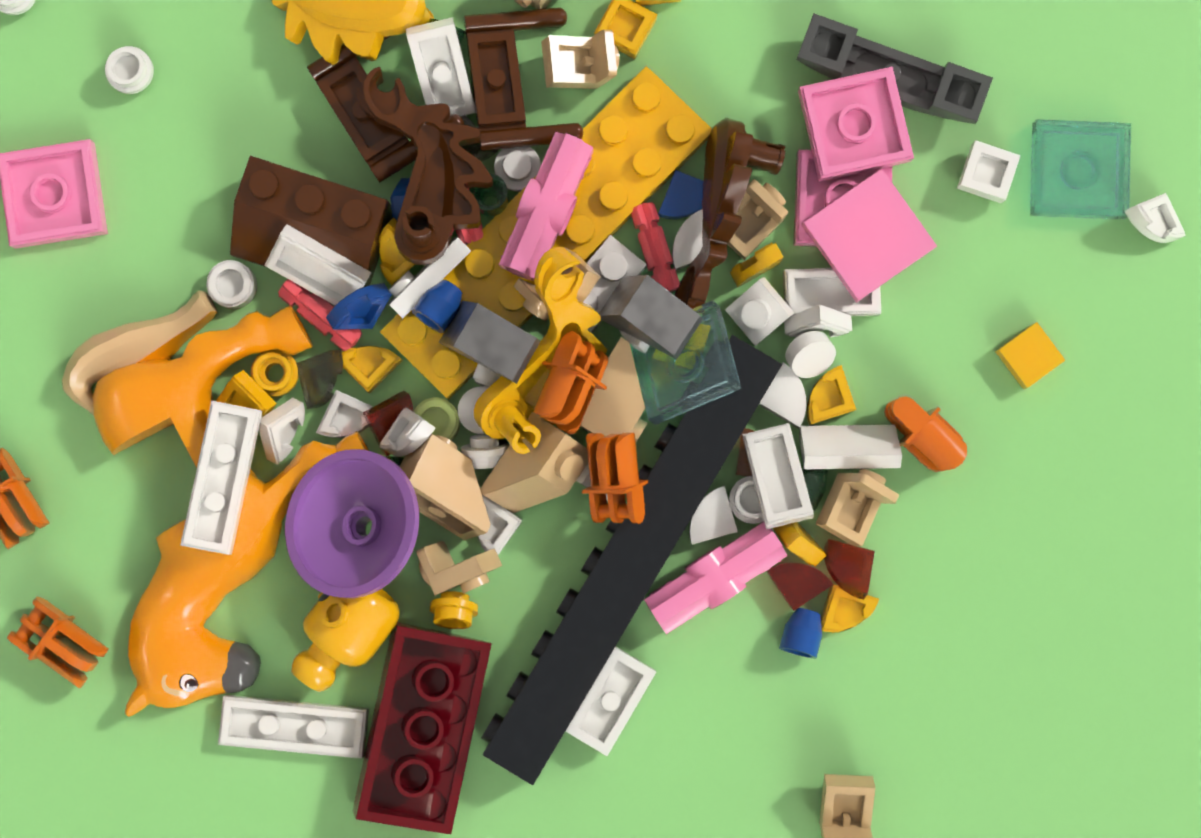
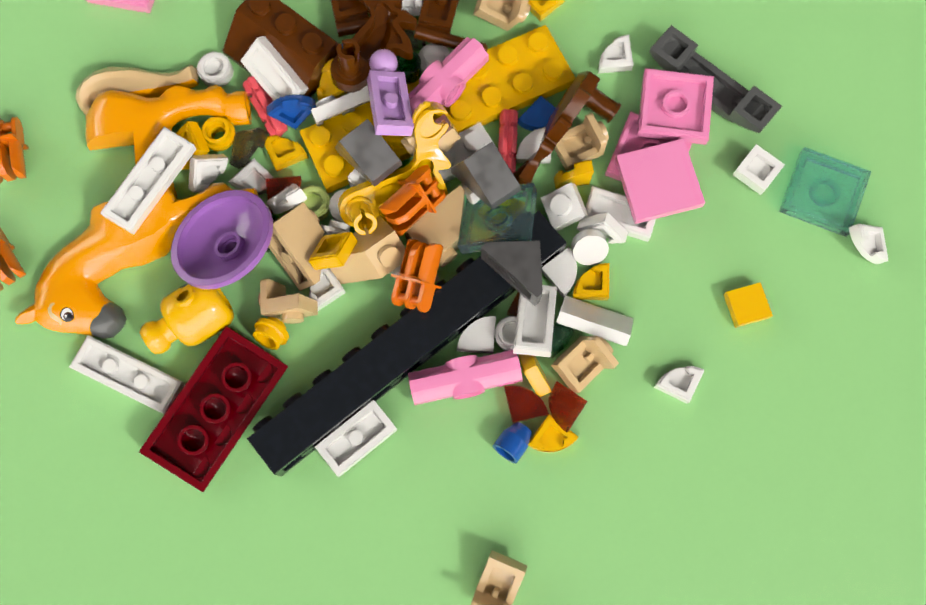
camera: 20 degrees right, 10 degrees down
(438, 306) = (343, 122): blue hose -> none
(490, 258) = (389, 96): none -> lavender plate
(495, 484) = (333, 250): none -> yellow tile
(738, 421) = (518, 264): none -> flat silver slope
(754, 75) = (616, 56): none -> white tile
(926, 435) = (653, 330): orange arm -> none
(979, 484) = (680, 382): none -> white tile

